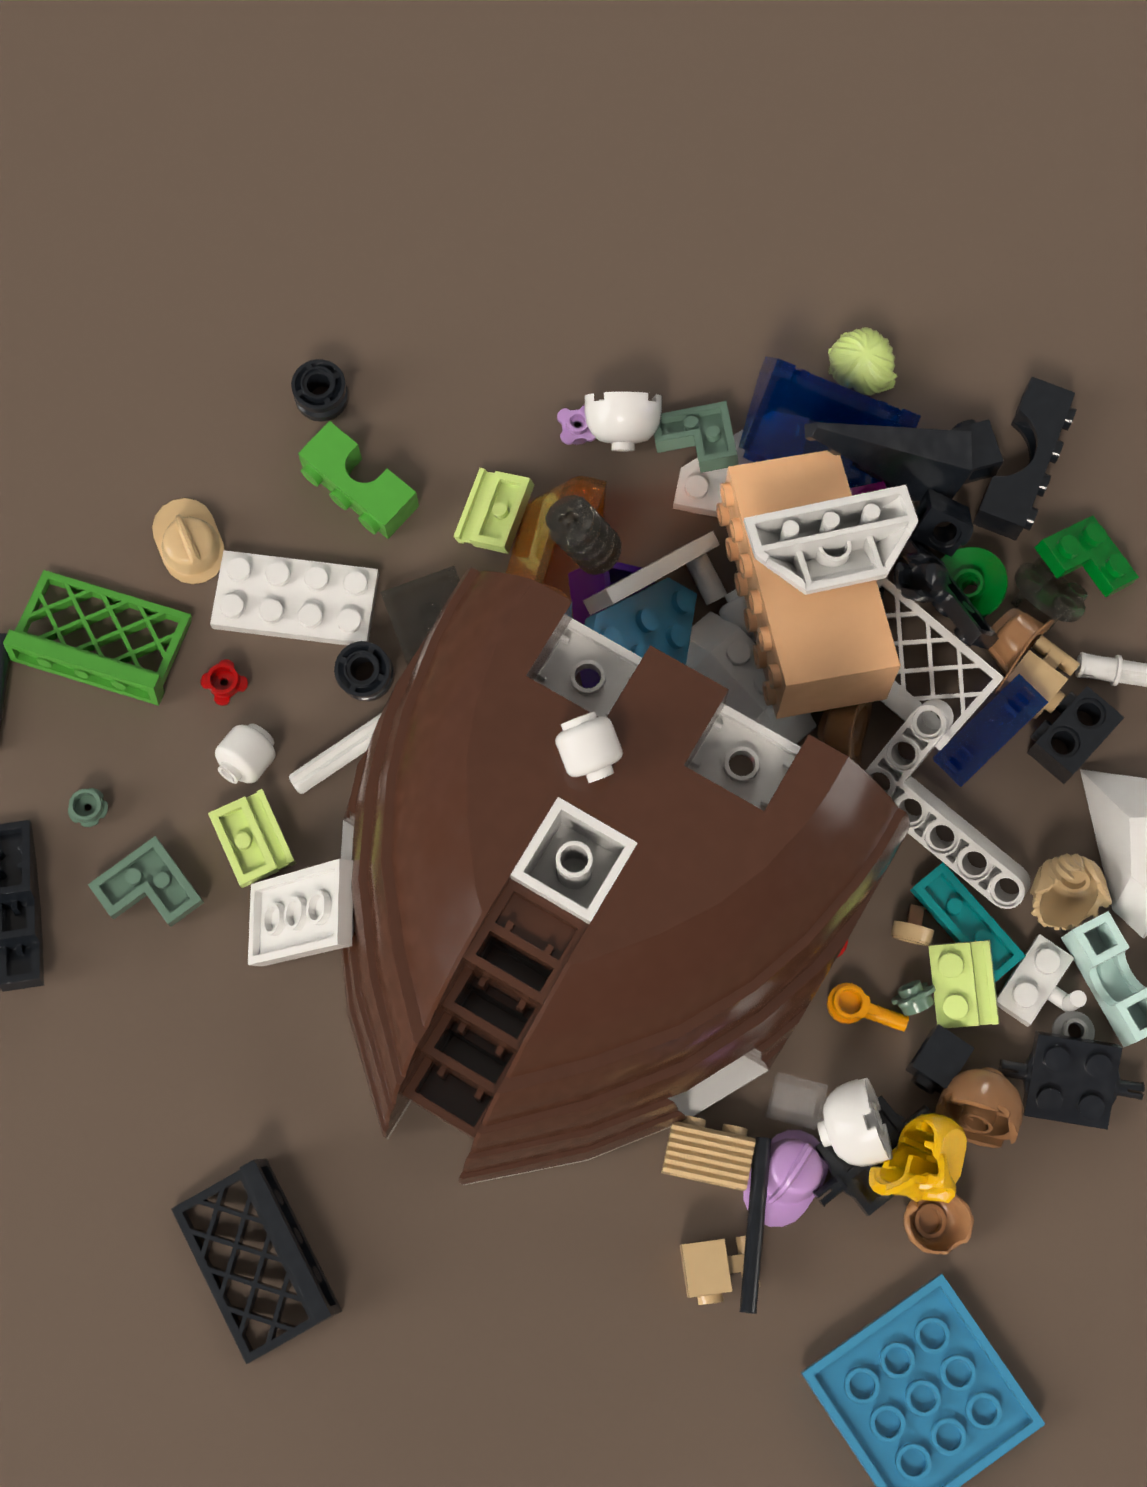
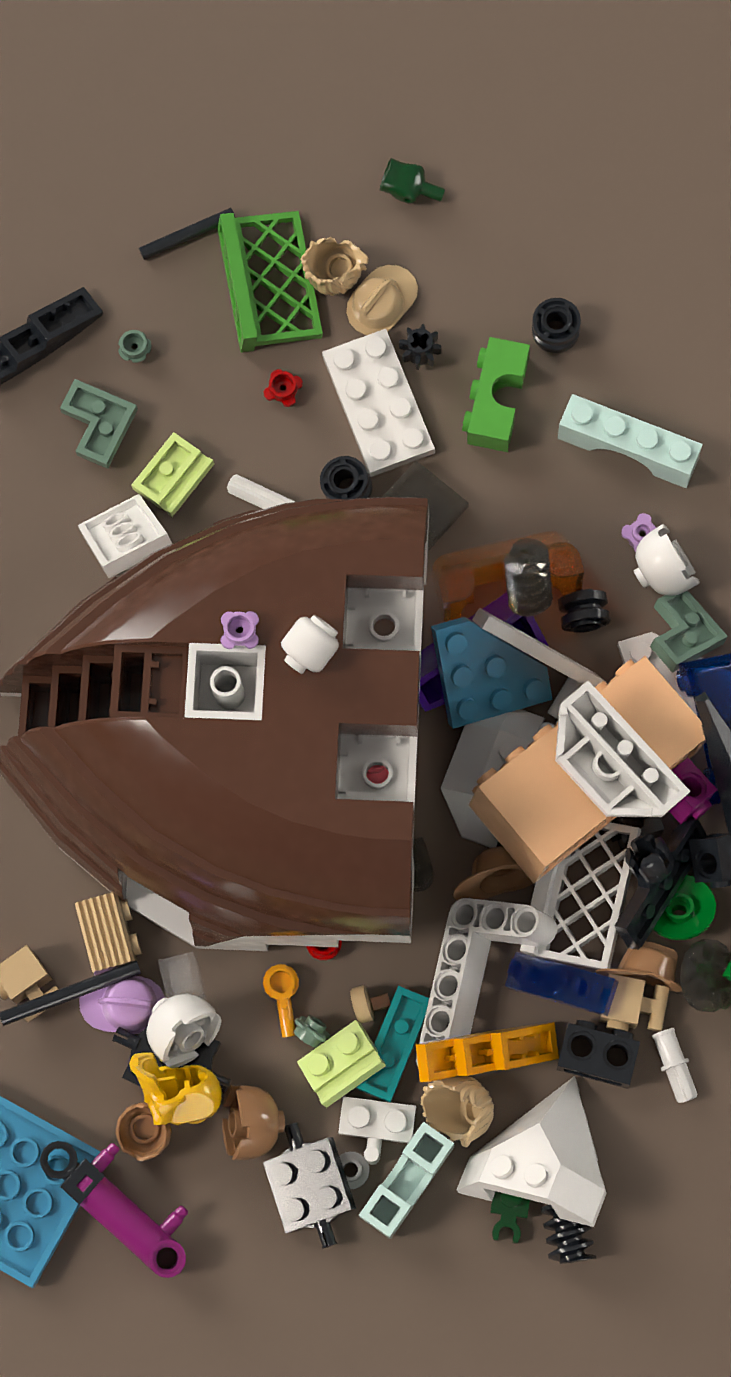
camera: 70 degrees right, 0 degrees up
(82, 450) = (408, 182): none -> dark green piece
(129, 561) = (333, 266): none -> tan hair
(245, 753) = (233, 433): white head -> none
(253, 527) = (418, 355): none -> black gear
(494, 510) = (532, 508): yellowish green plate -> none
(507, 362) = (659, 450): none -> light aqua arch
(524, 800) = (231, 622): none -> lavender plate
(629, 514) = (584, 610): none -> black wheel
(938, 1060) = (270, 1072): black brick -> none
(1008, 1293) = (115, 1210): none -> magenta piece
(1026, 834) = (487, 1051): none -> light orange slope

